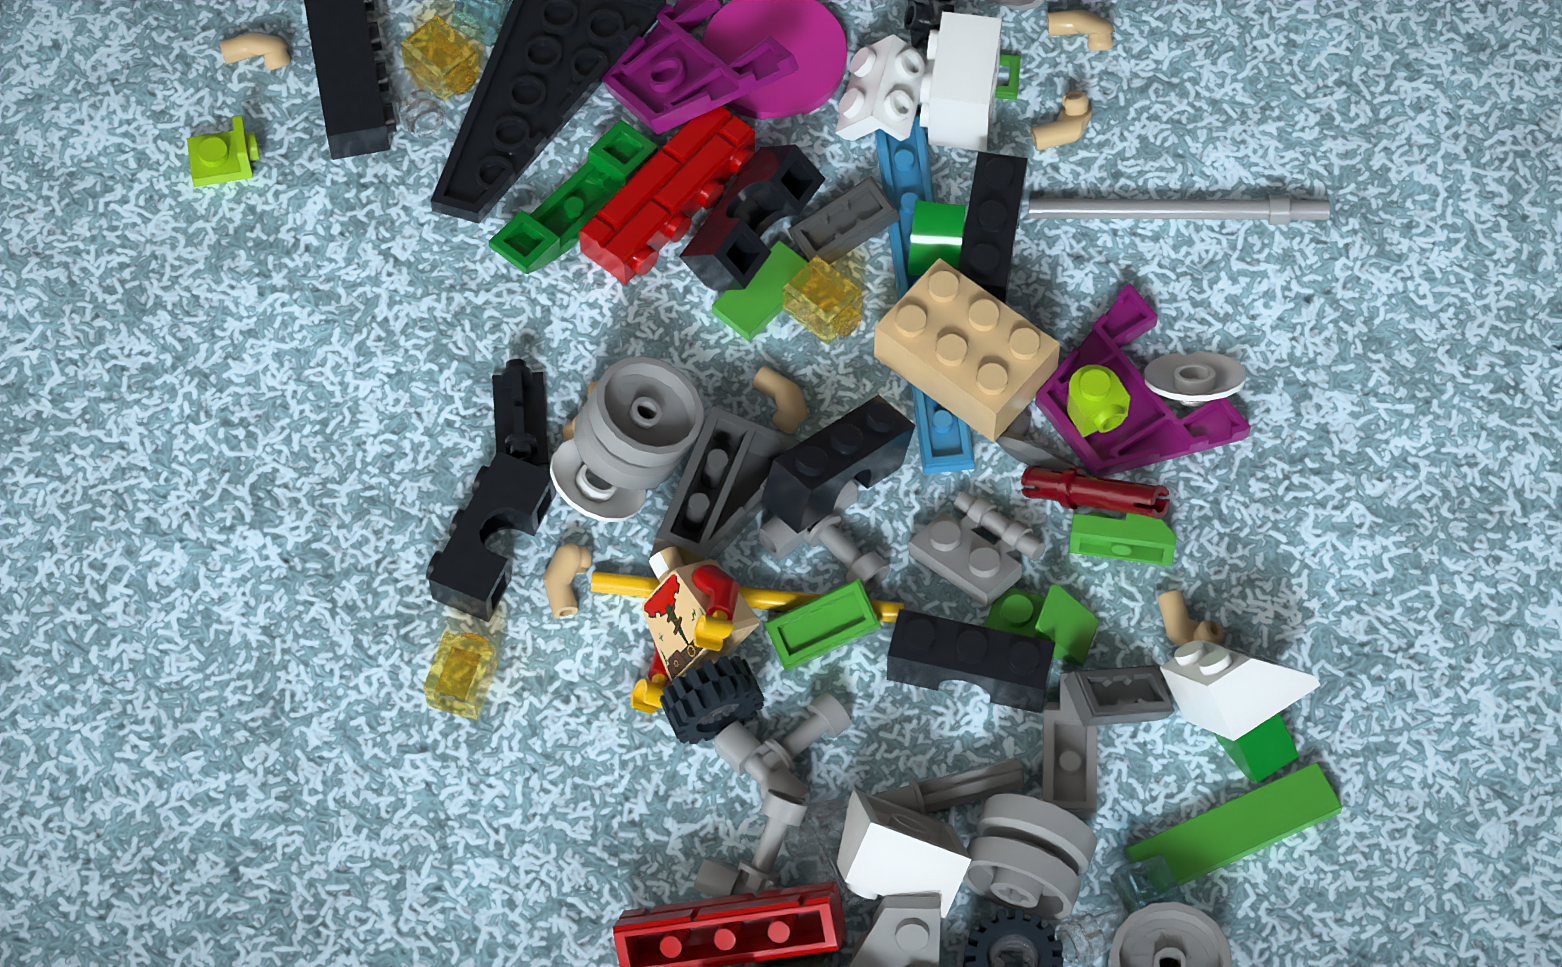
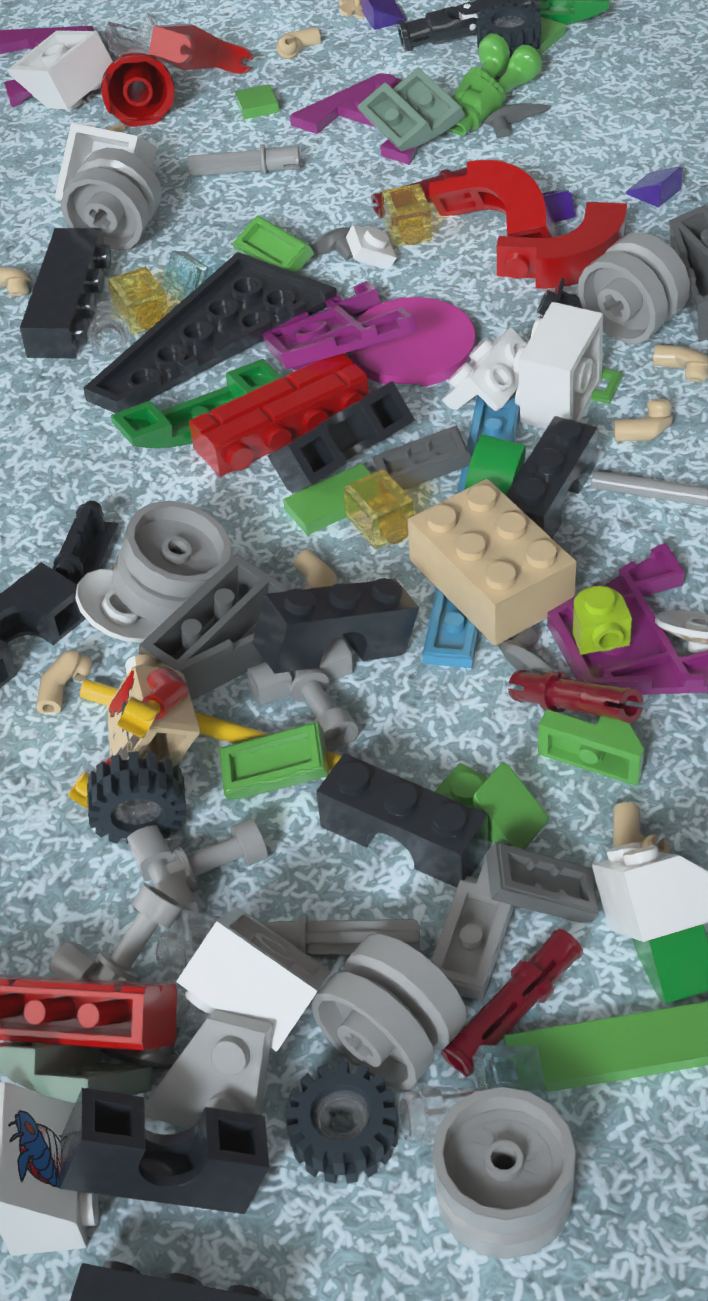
camera: 20 degrees right, 15 degrees down
(966, 558) = (434, 730): light grey plate -> none
(1133, 795) = (529, 984): none -> dark red pin

